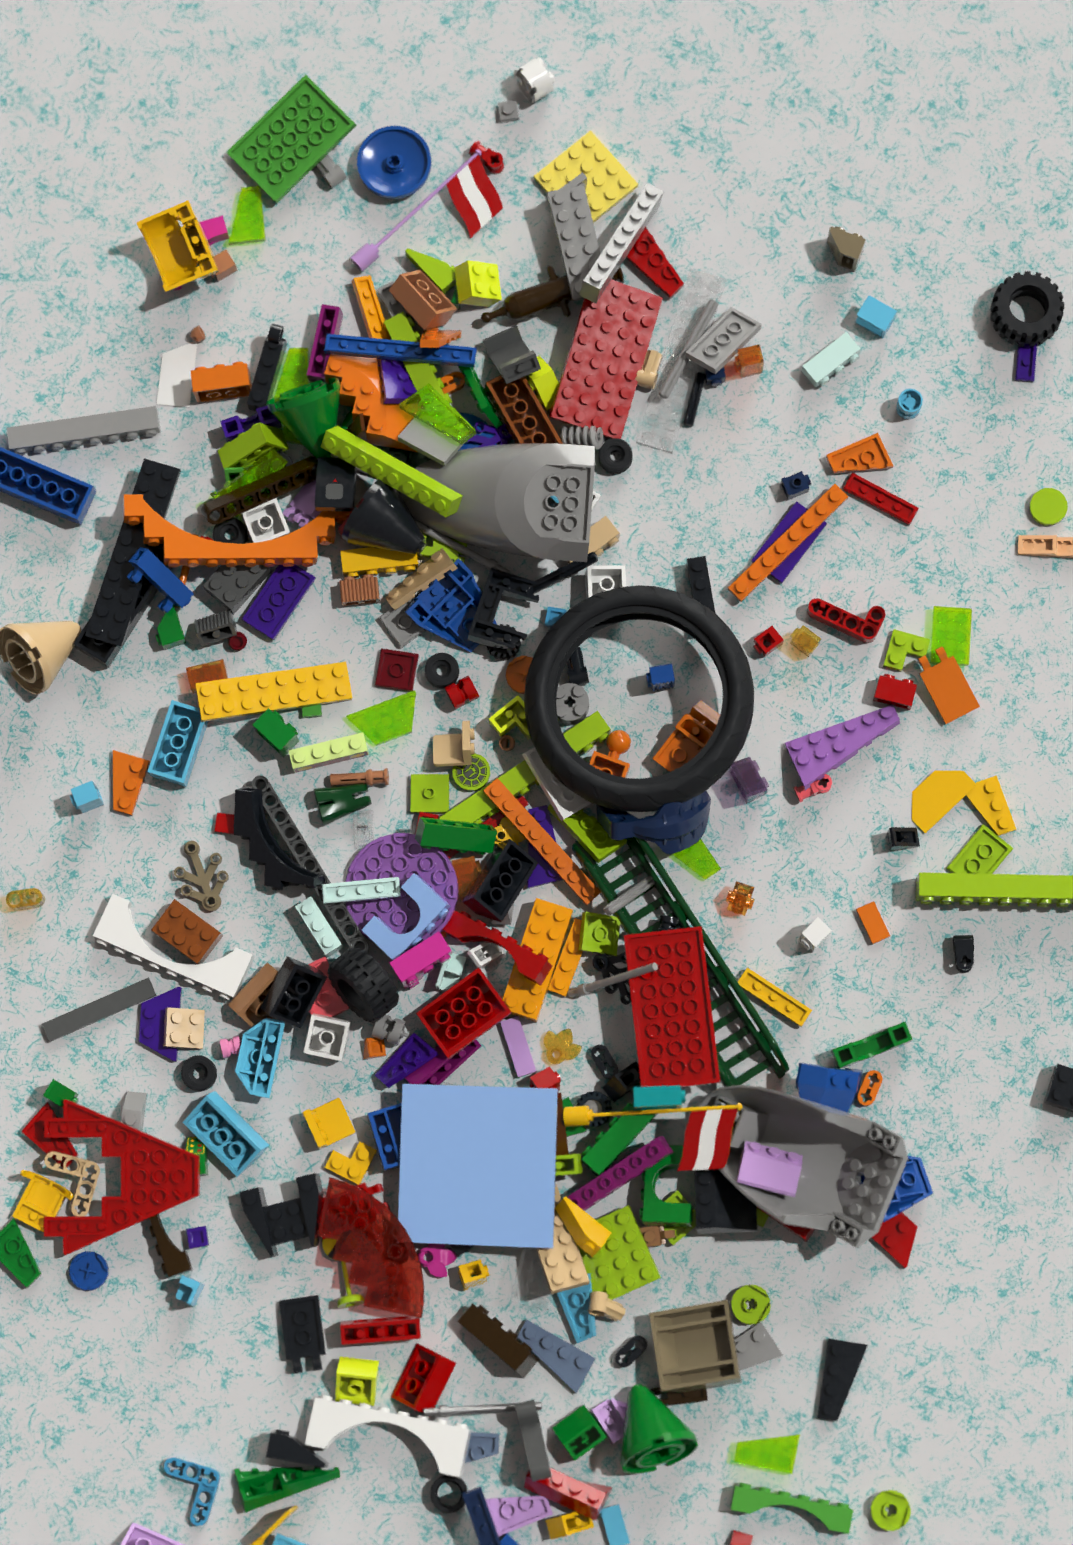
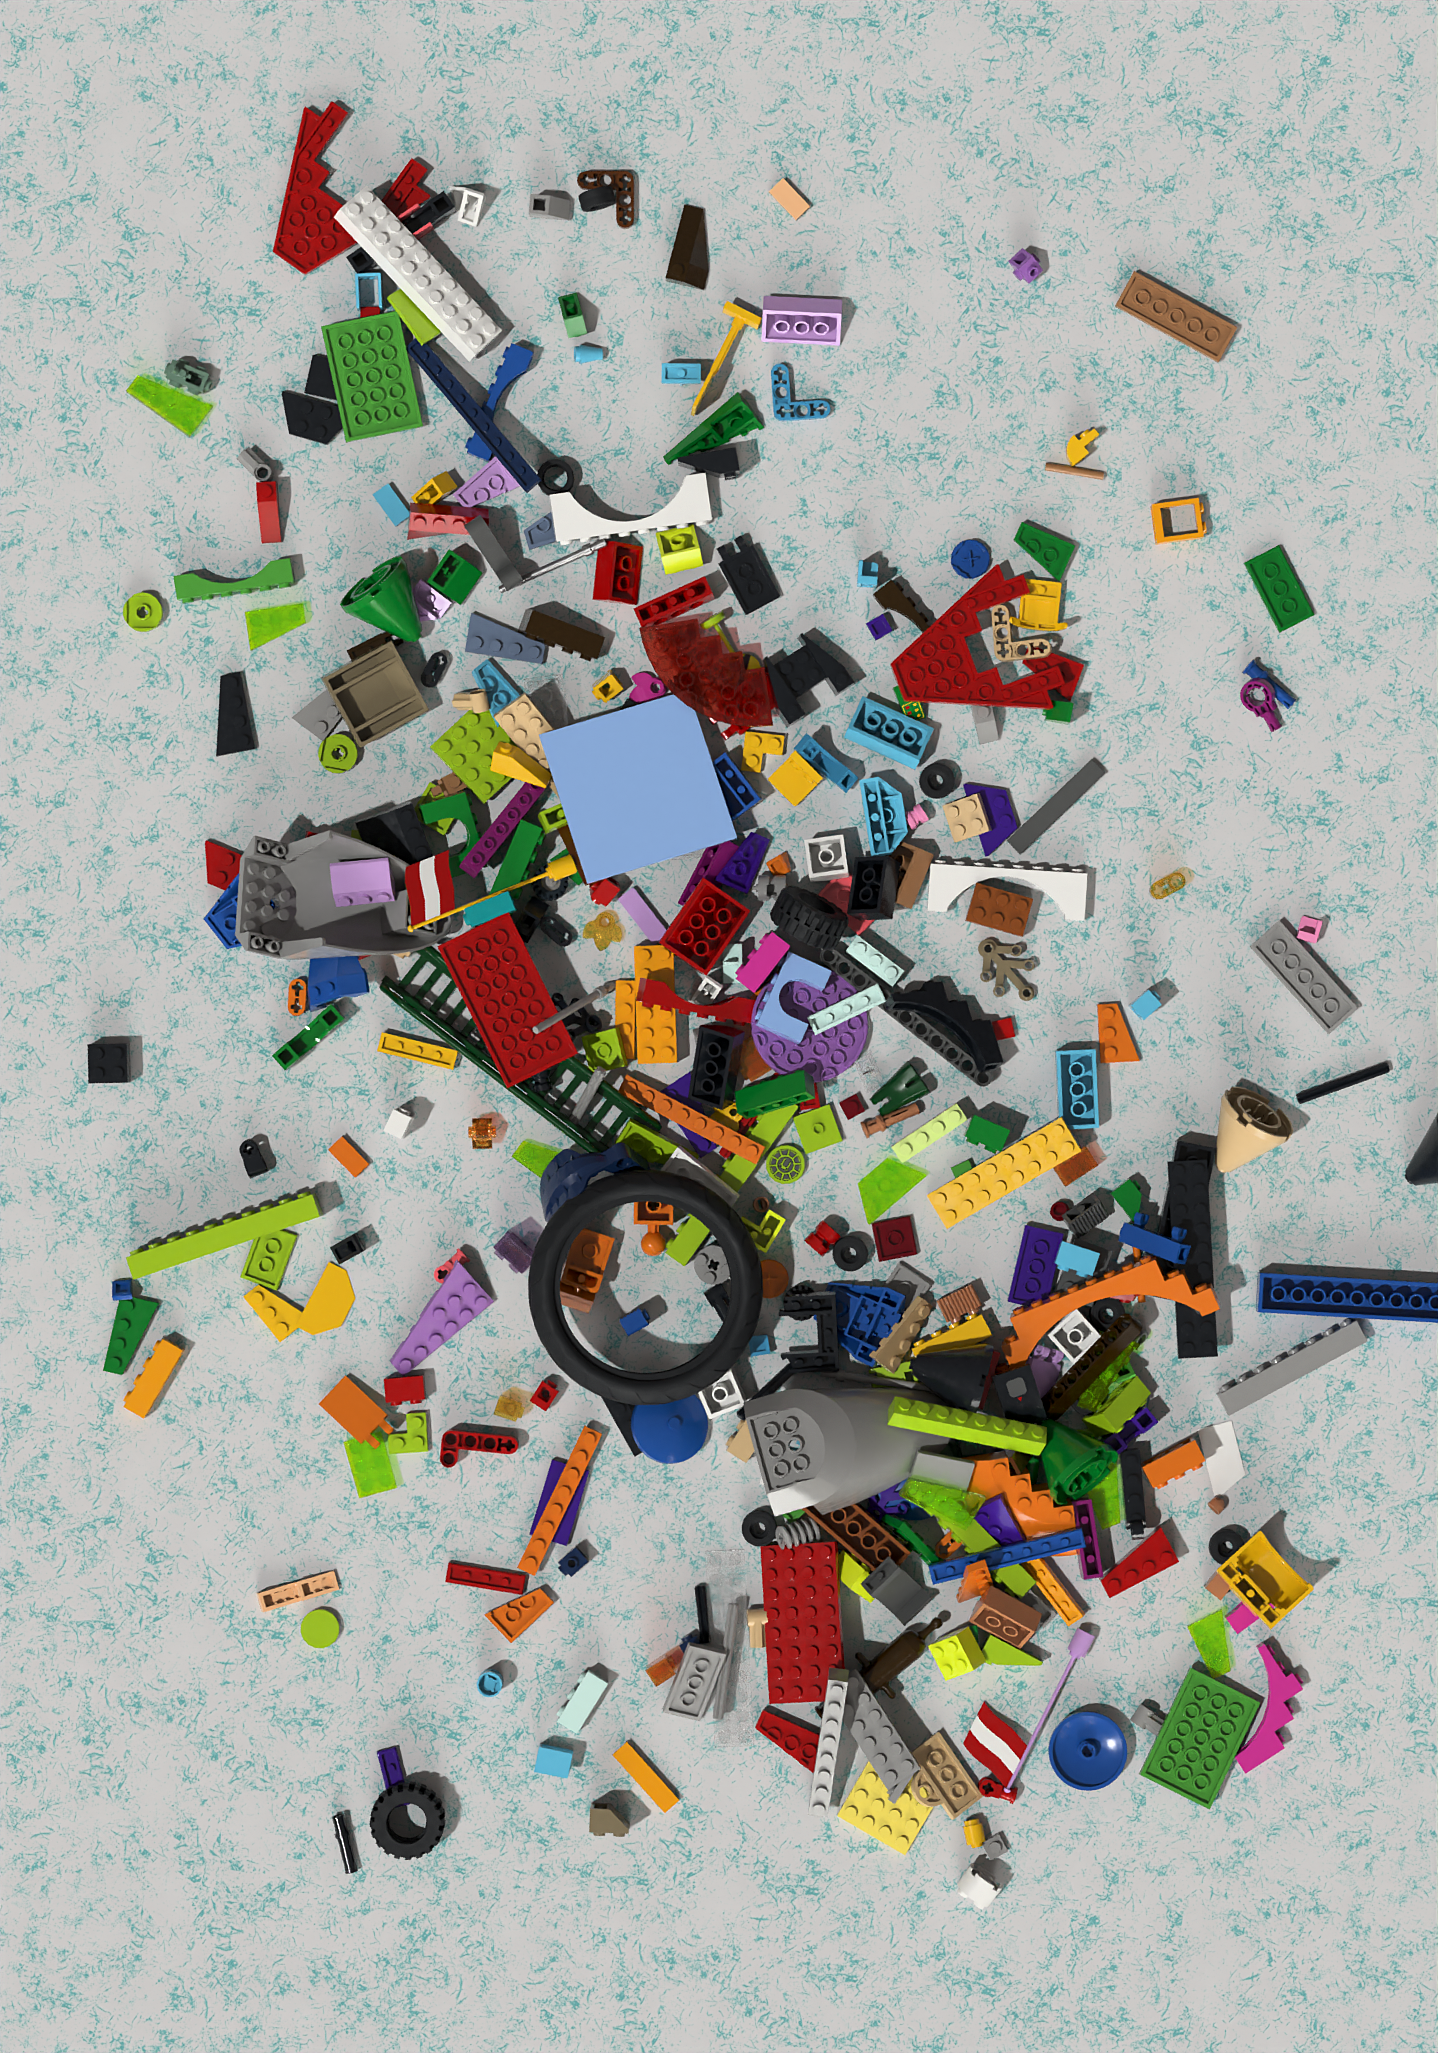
camera: 150 degrees right, 10 degrees up
(208, 304) = (1218, 1539): none -> black tyre
(233, 119) = (1281, 1687): none -> dark pink arch
(236, 588) = (1076, 1258): none -> medium azure brick
(285, 306) = (1140, 1563): none -> red wedge
(294, 1125) = (825, 763): none -> dark azure arch
(390, 802) = (852, 1106): none -> dark red plate
(454, 748) = (809, 1180): tan bracket -> none
(521, 128) = (974, 1832): none -> yellow brick
(531, 181) = (943, 1778): none -> tan plate
(664, 564) = (670, 1430): none -> blue dish
(797, 276) = (645, 1777): none -> light orange tile

